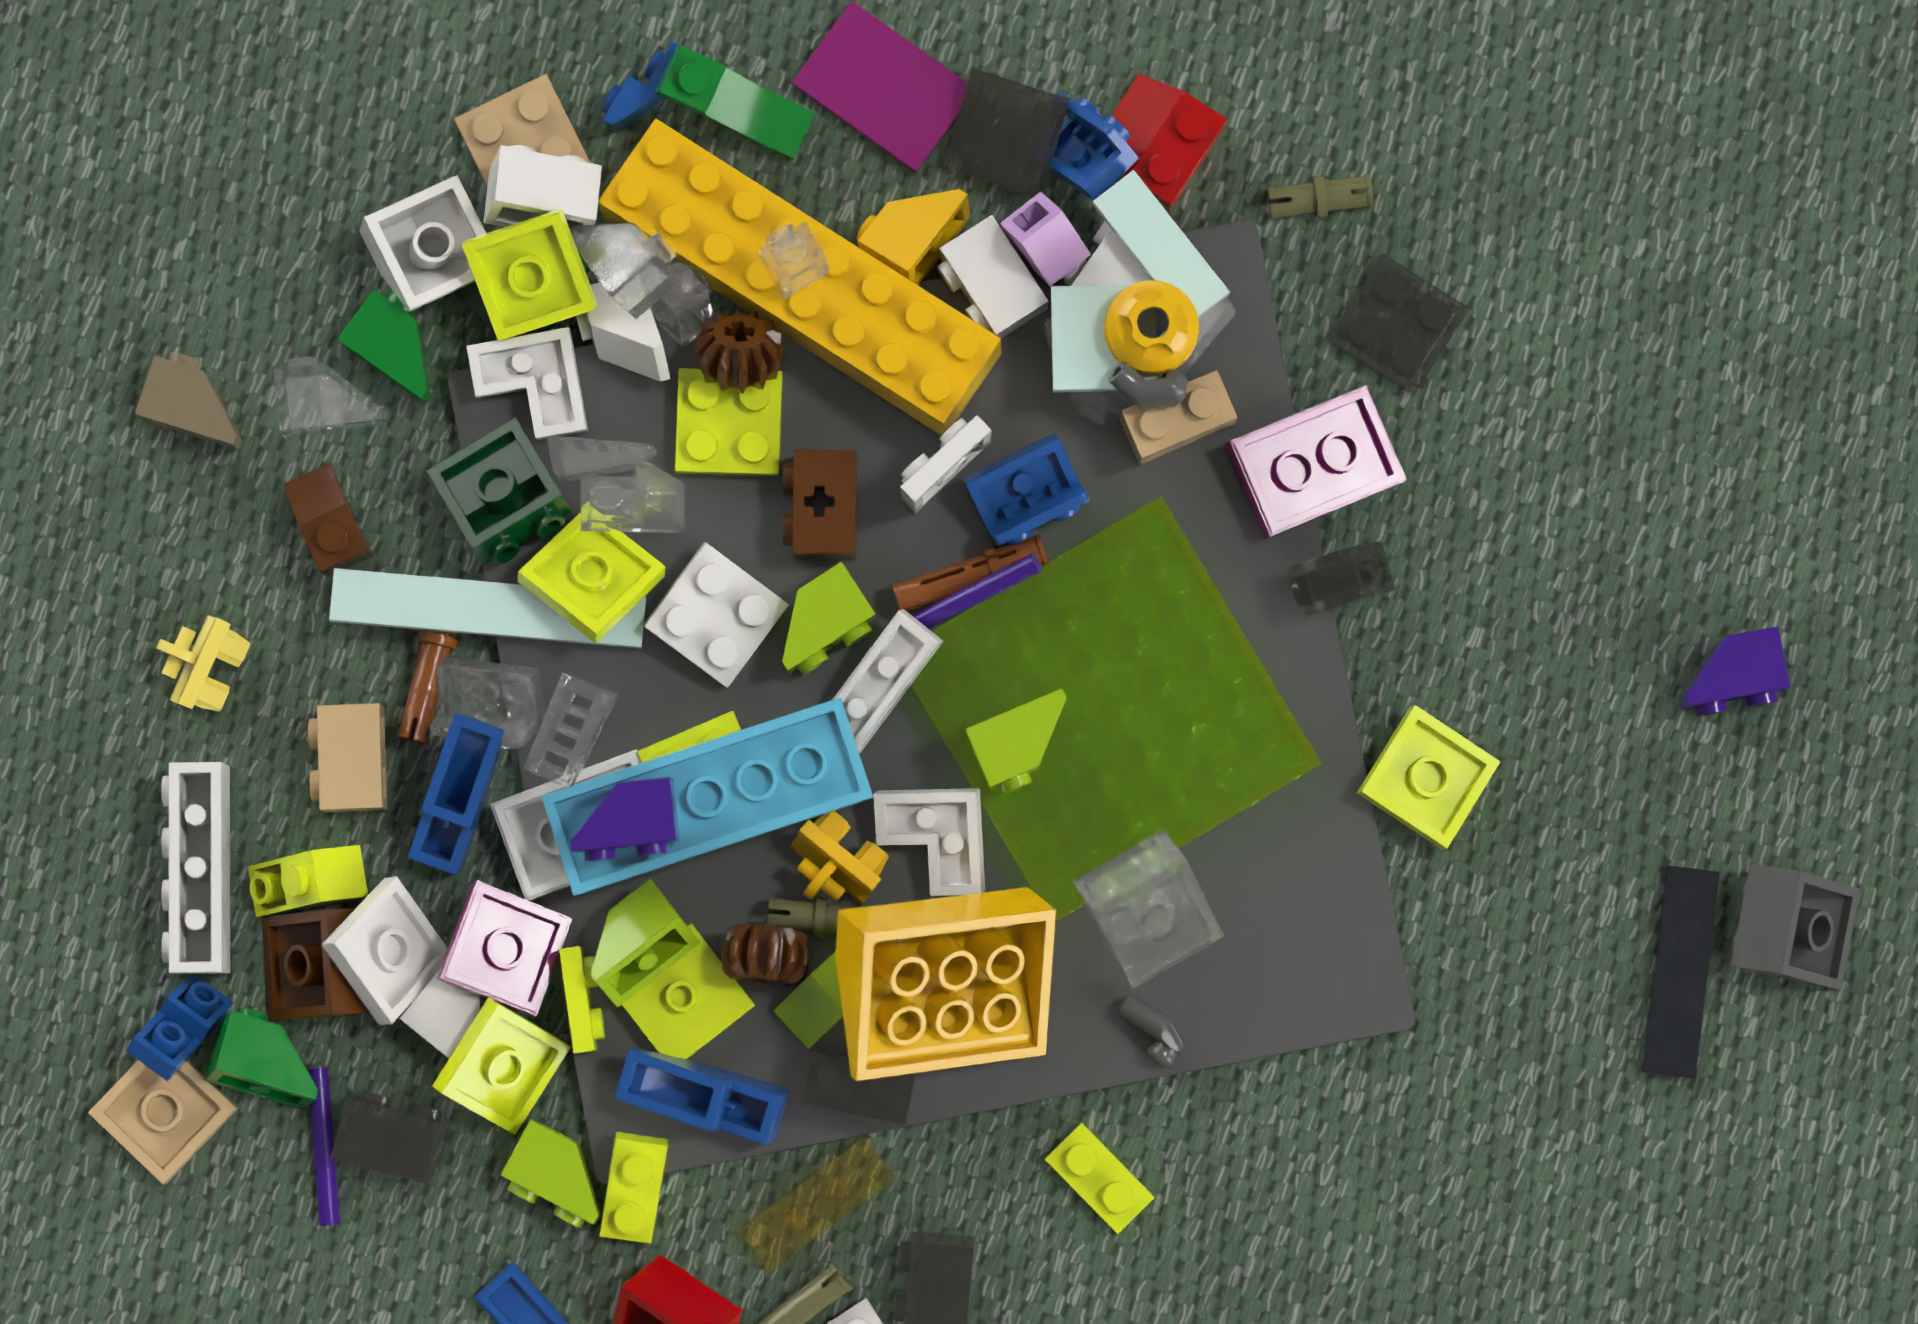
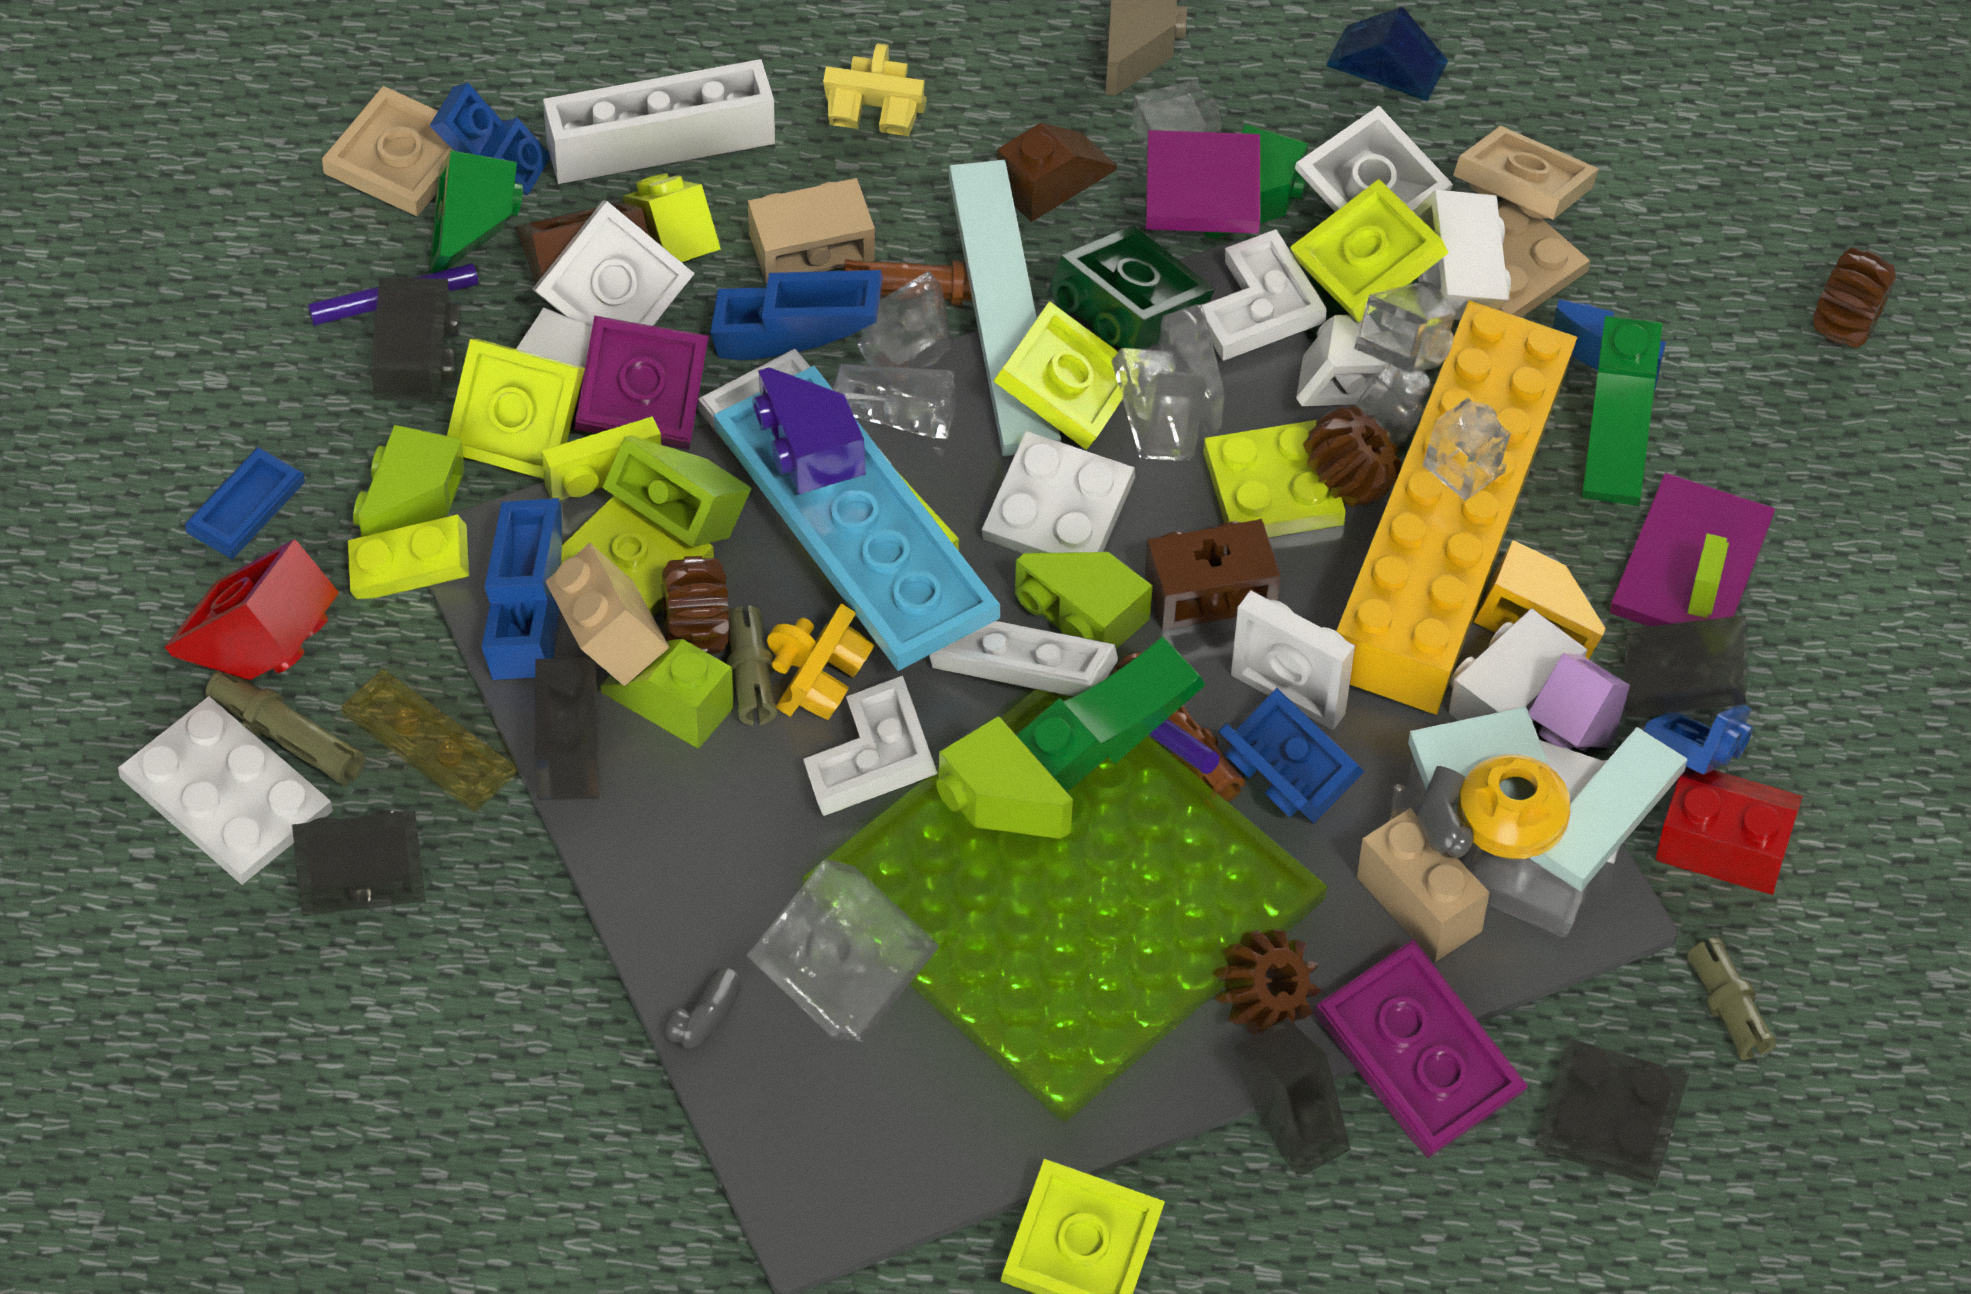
camera: 75 degrees right, 30 degrees down
(263, 182) = (1391, 53): none -> clear blue slope
(403, 397) = (1203, 181): none -> magenta tile
(443, 101) = (1525, 173): none -> tan plate
(770, 1033) = (606, 614): none -> tan brick
(924, 84) = (1708, 576): none -> lime tile
(945, 981) = (704, 765): yellow slope -> none
(973, 633) = (1112, 715): none -> green slope
(1099, 1178) = (519, 1007): neon yellow plate -> none
(1246, 571) = (1286, 979): none -> reddish brown gear

